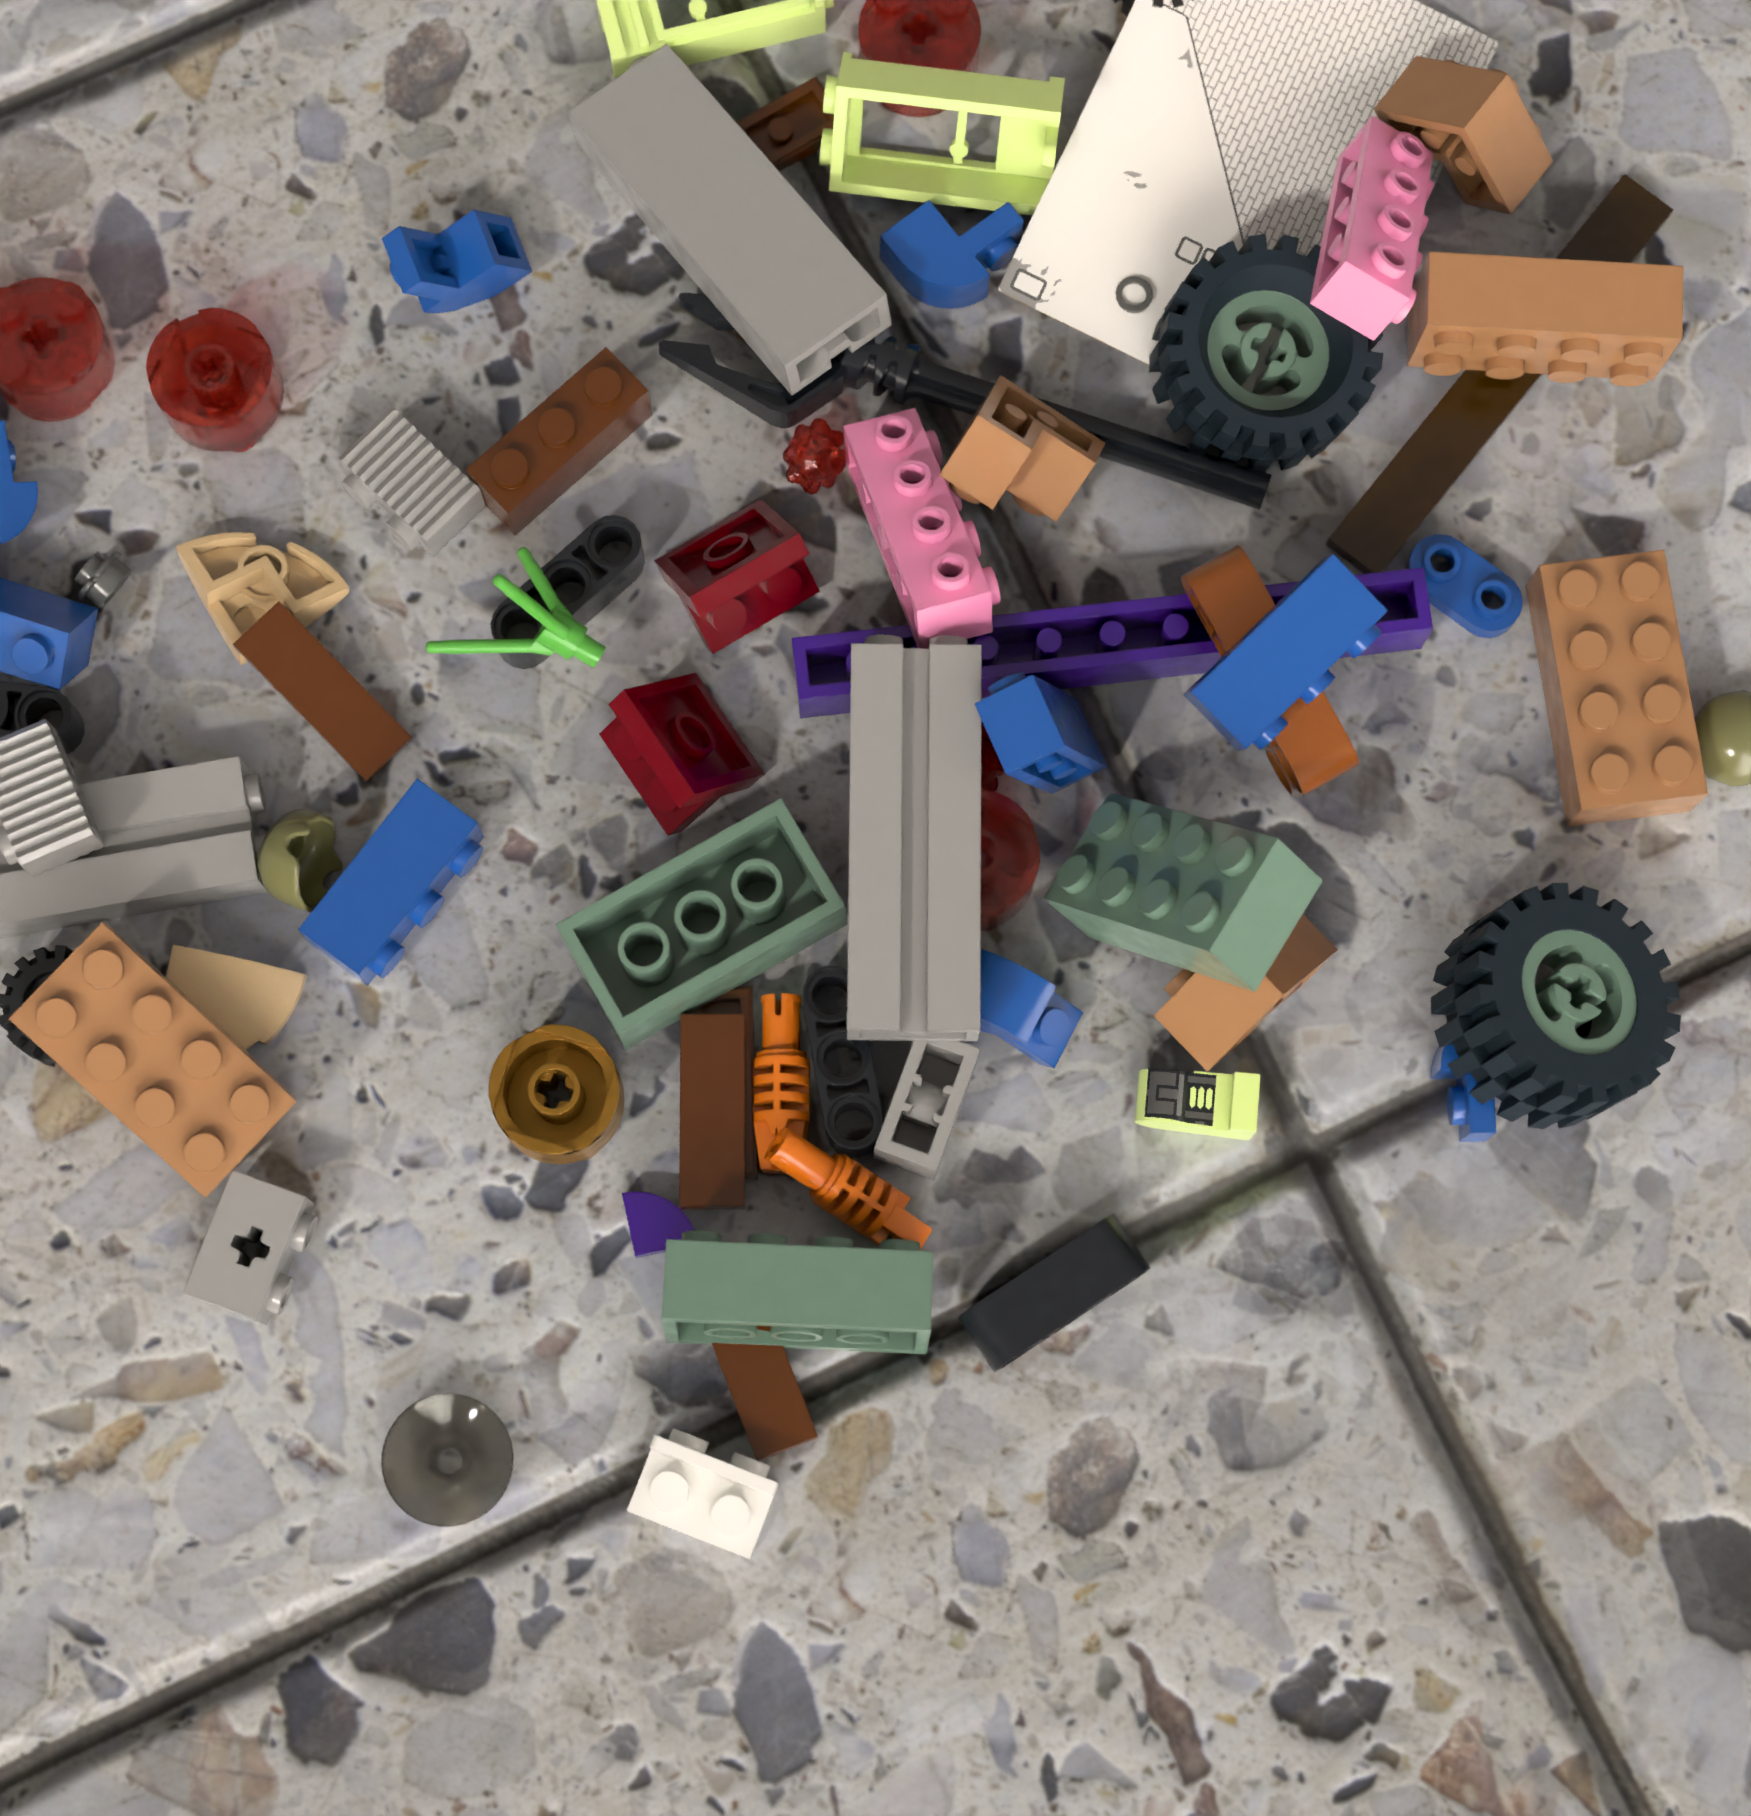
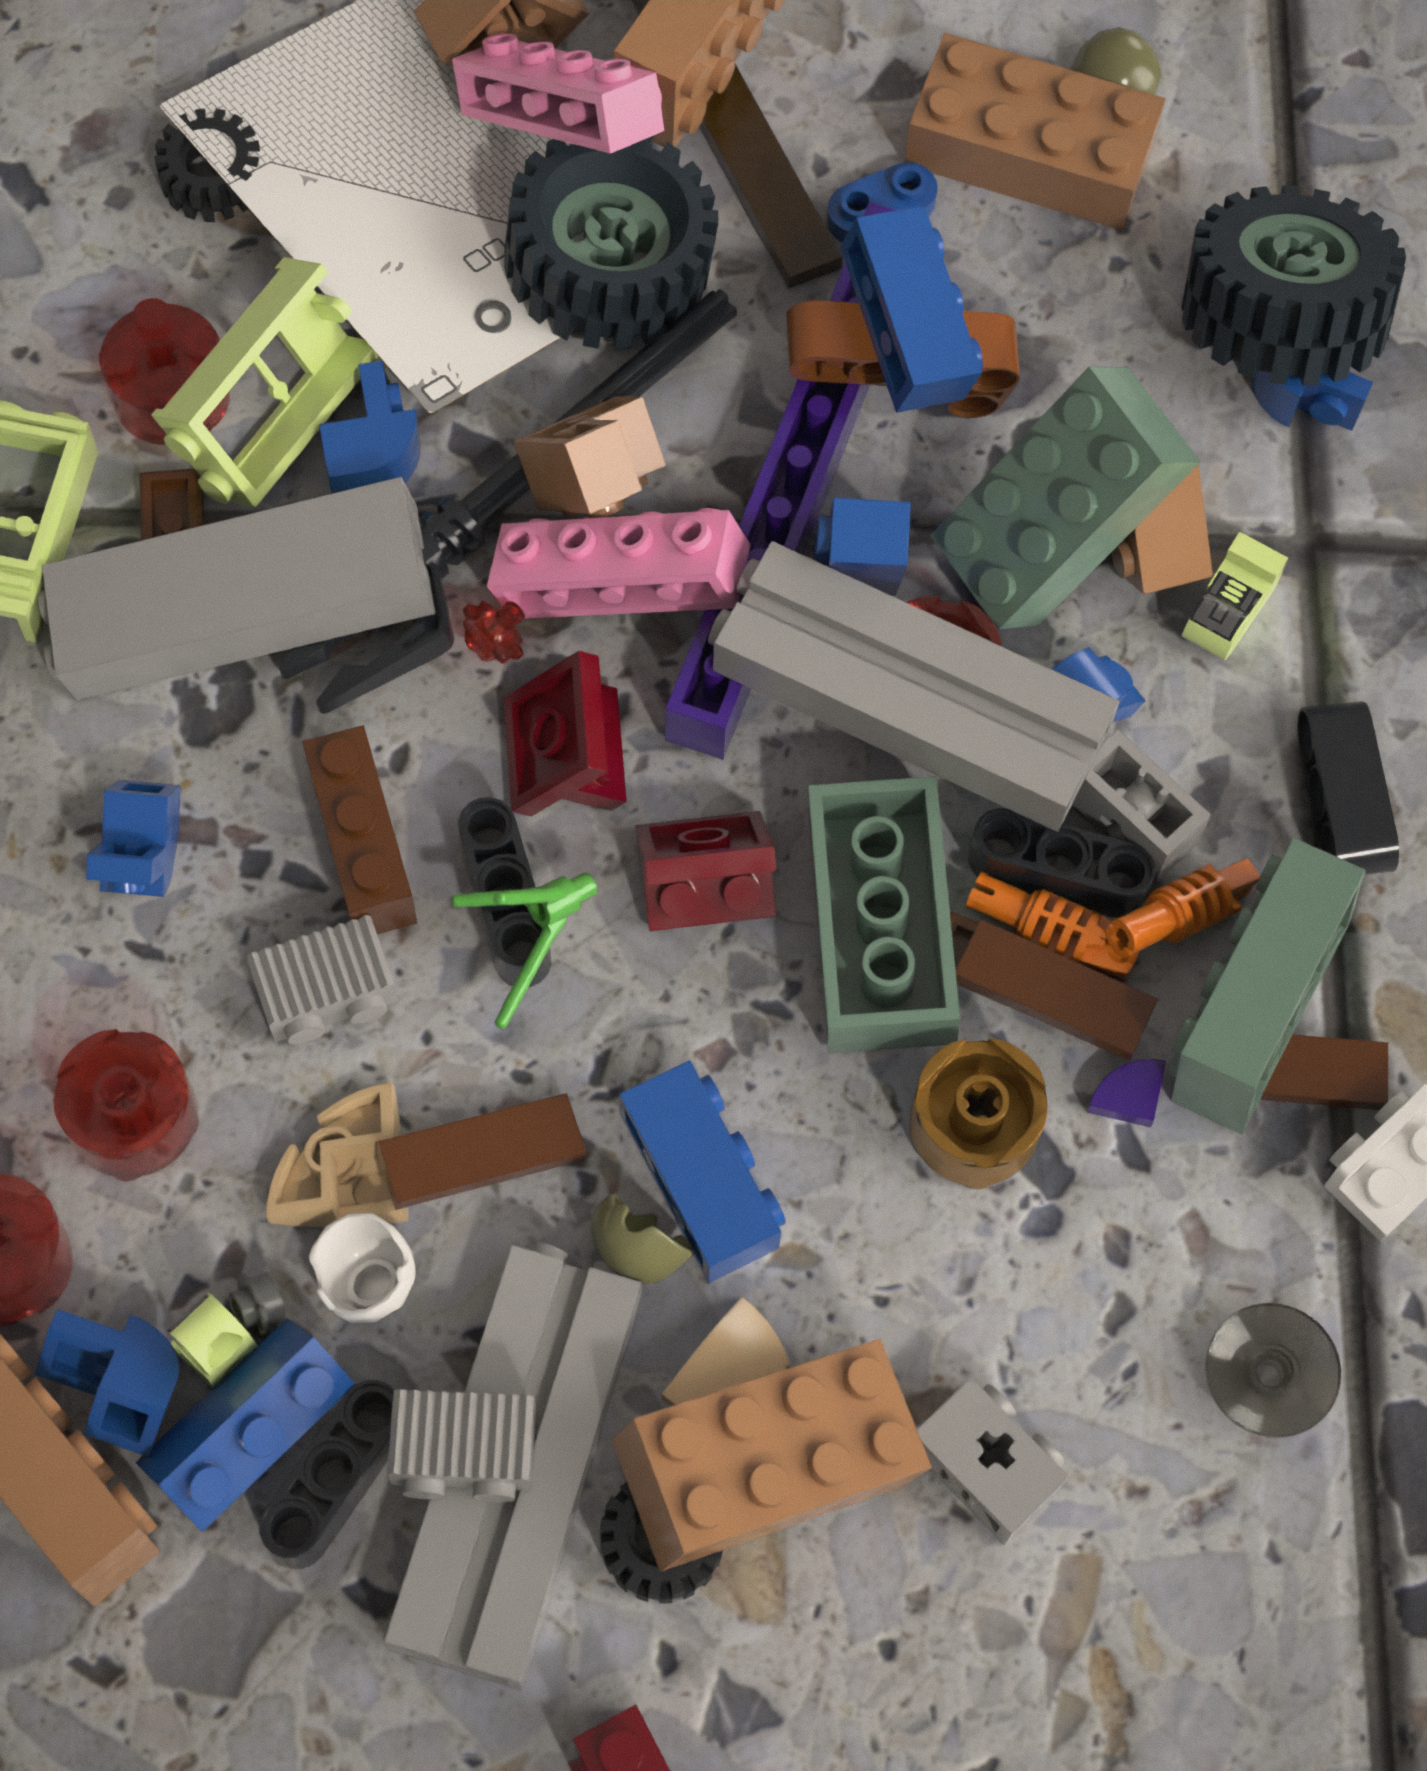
camera: 65 degrees left, 10 degrees down
(44, 556) = (211, 1340): none -> yellowish green leg
(168, 647) = (362, 1267): none -> white hair

